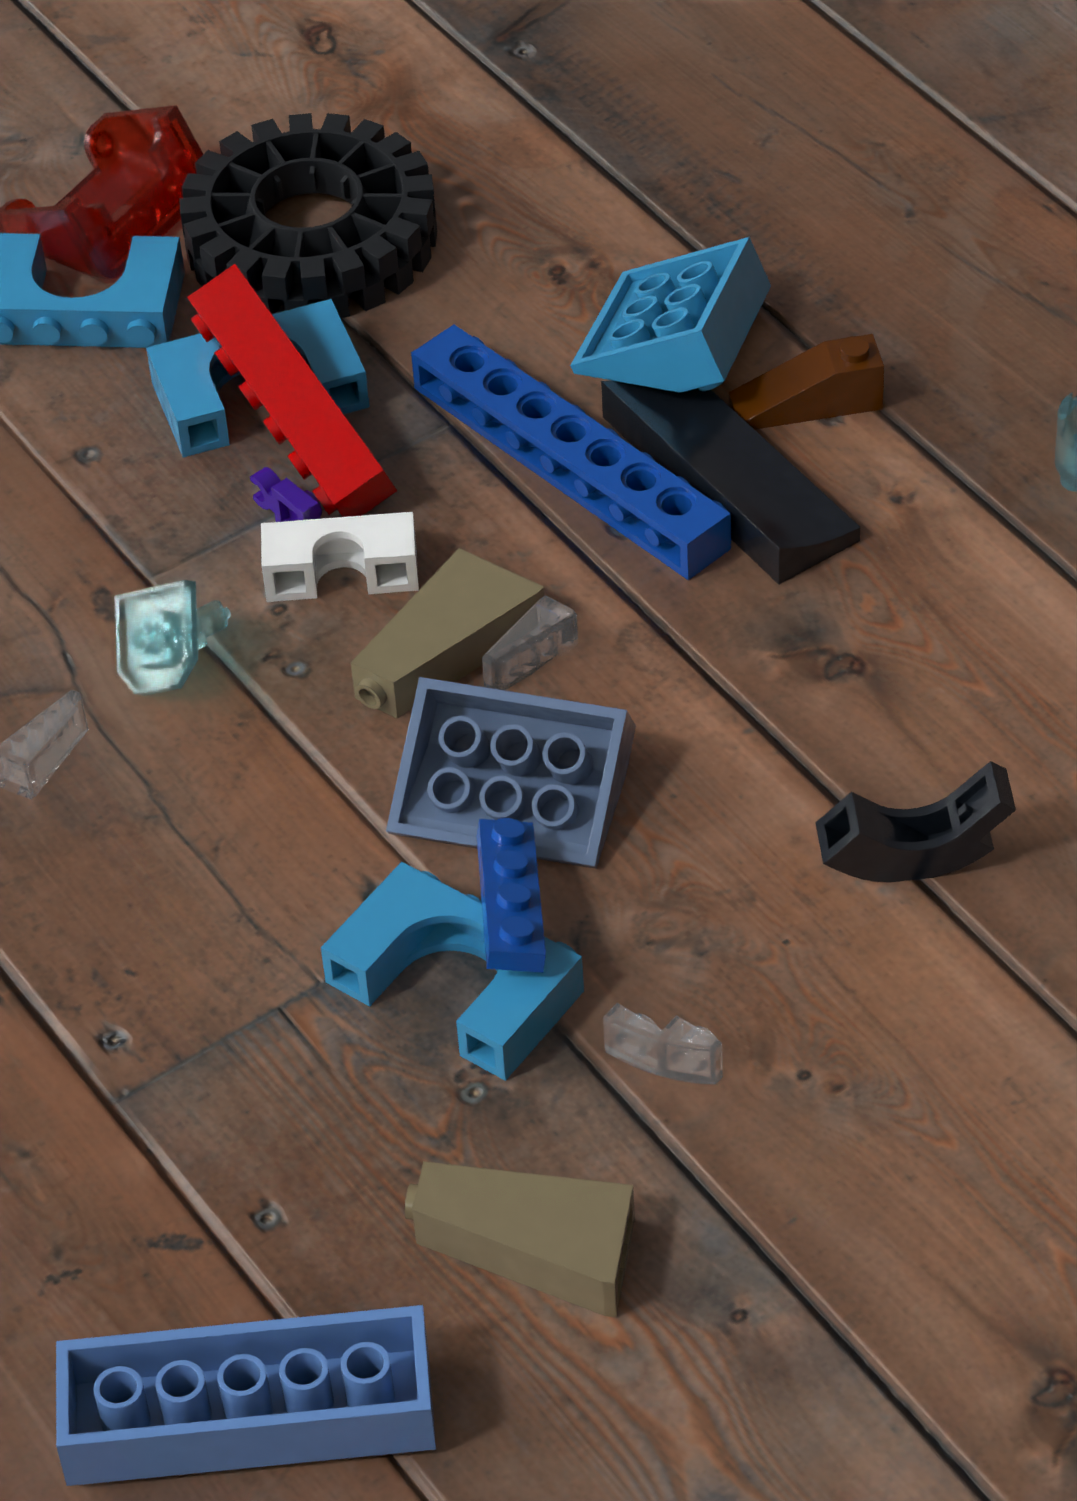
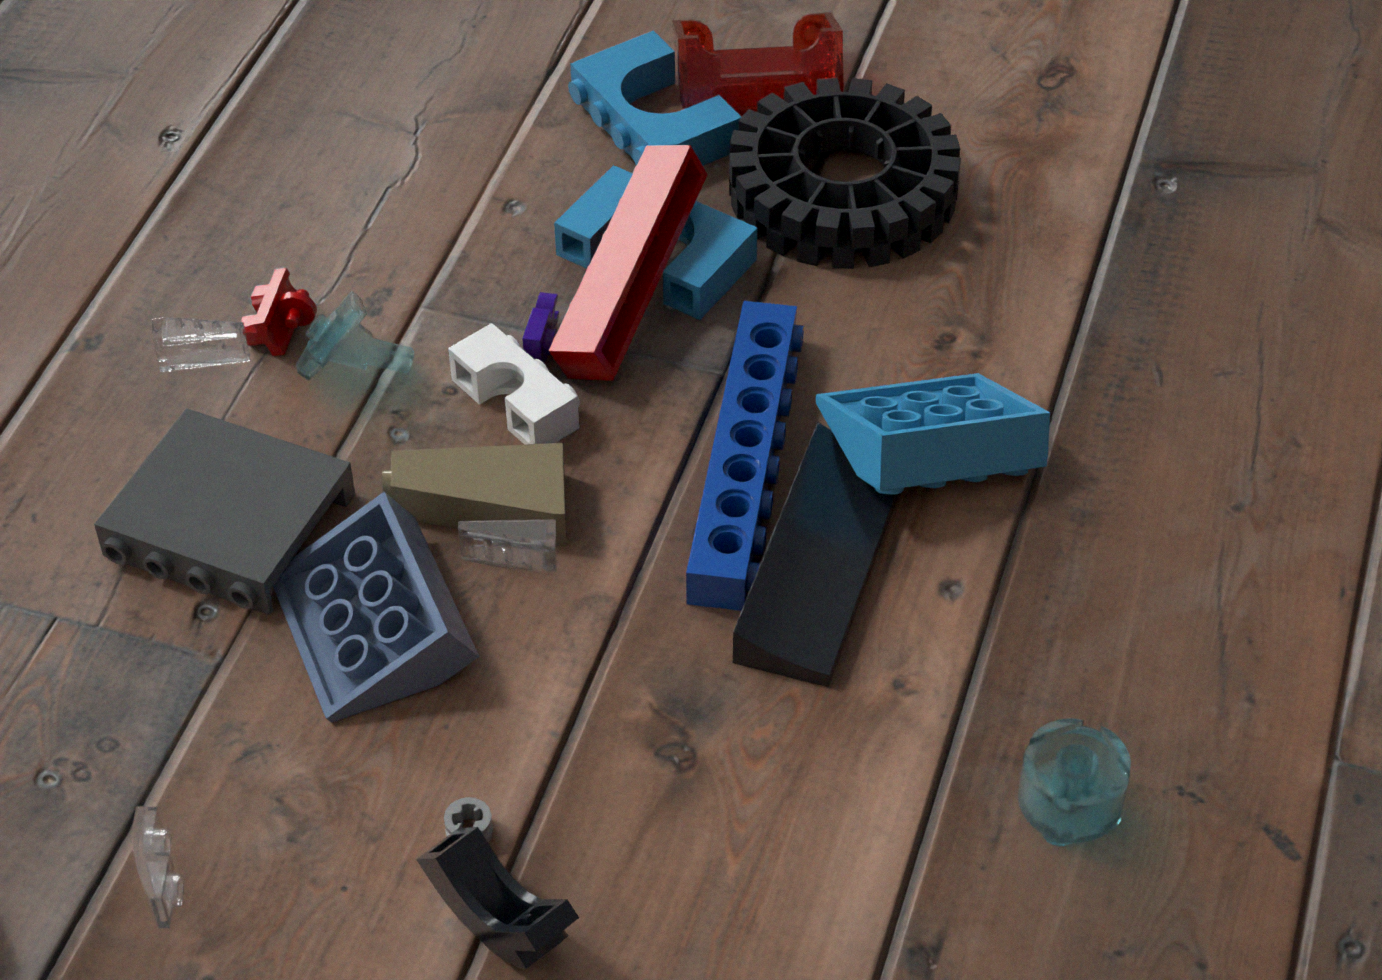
camera: 50 degrees right, 0 degrees up
(46, 660) = (279, 312): none -> red hips
(288, 816) = (222, 508): none -> dark grey panel
(420, 916) = (170, 741): dark azure arch -> none
(510, 895) = (218, 677): blue plate -> none
(798, 811) = (469, 809): none -> light grey bush
(818, 384) = (961, 557): reddish brown slope -> none

